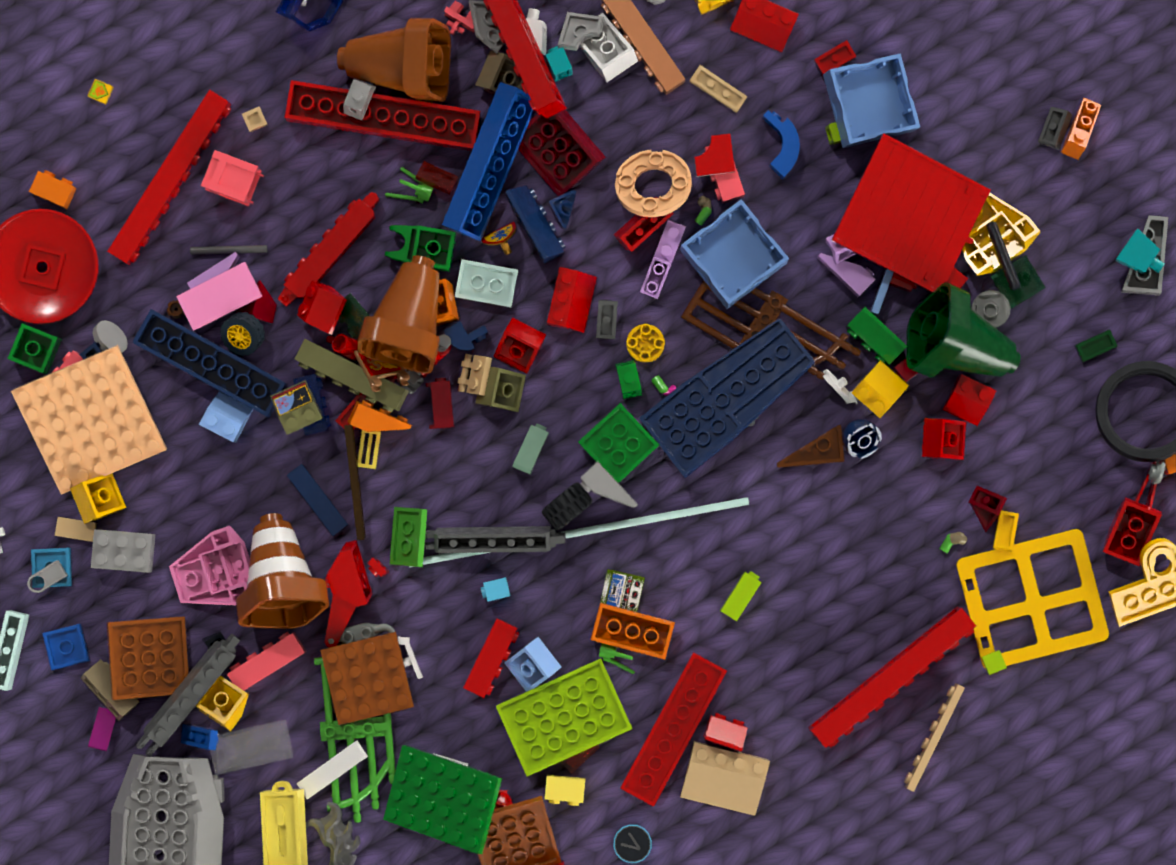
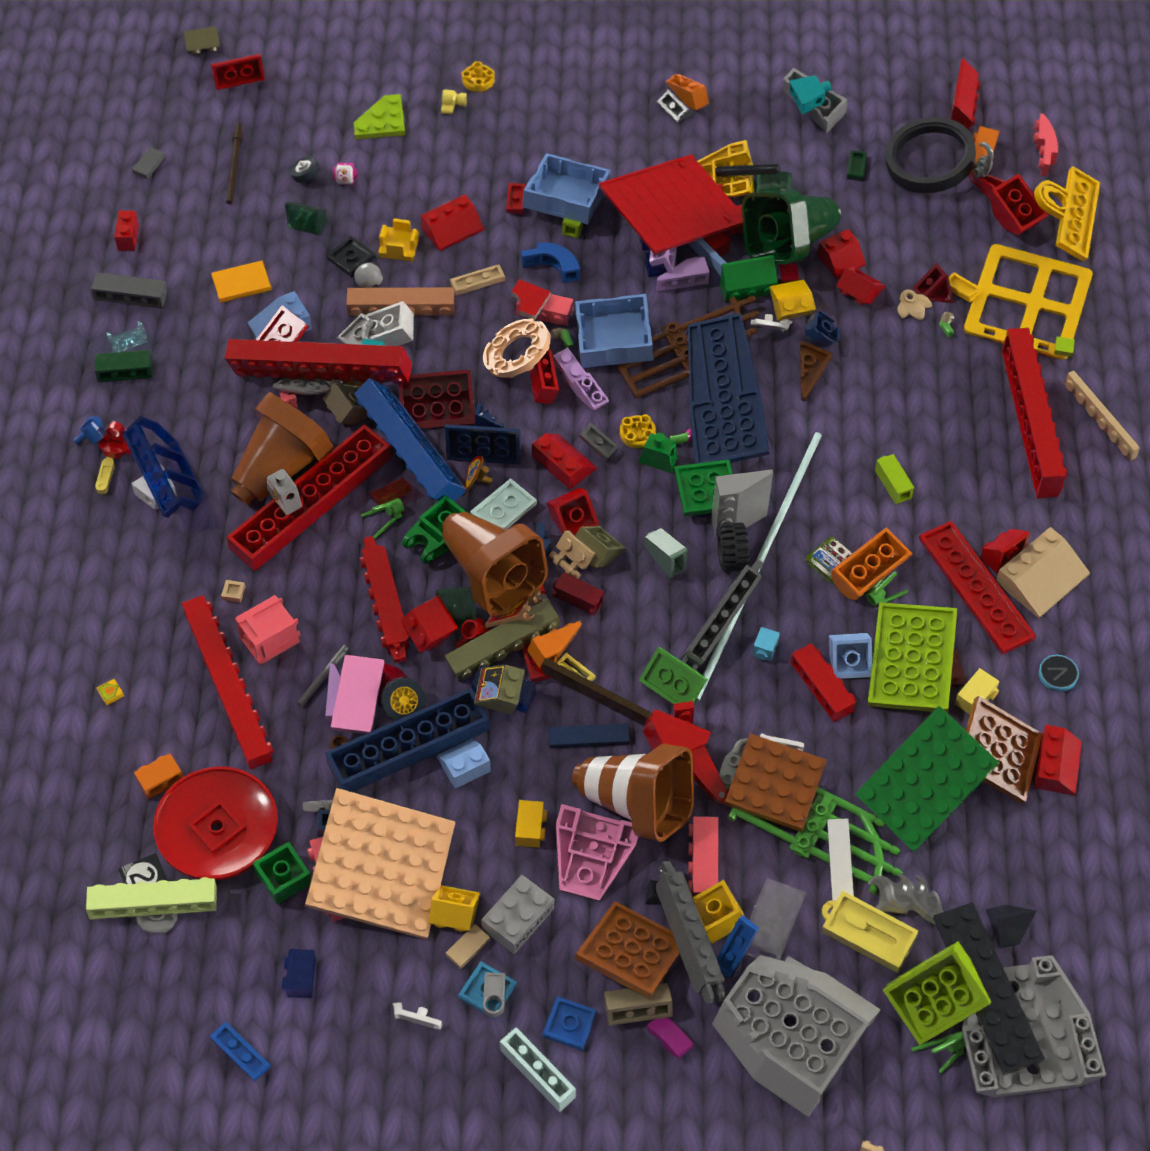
camera: 55 degrees left, 30 degrees down
(206, 507) = (529, 823): none -> yellow brick
(951, 501) = (915, 306): none -> tan plate

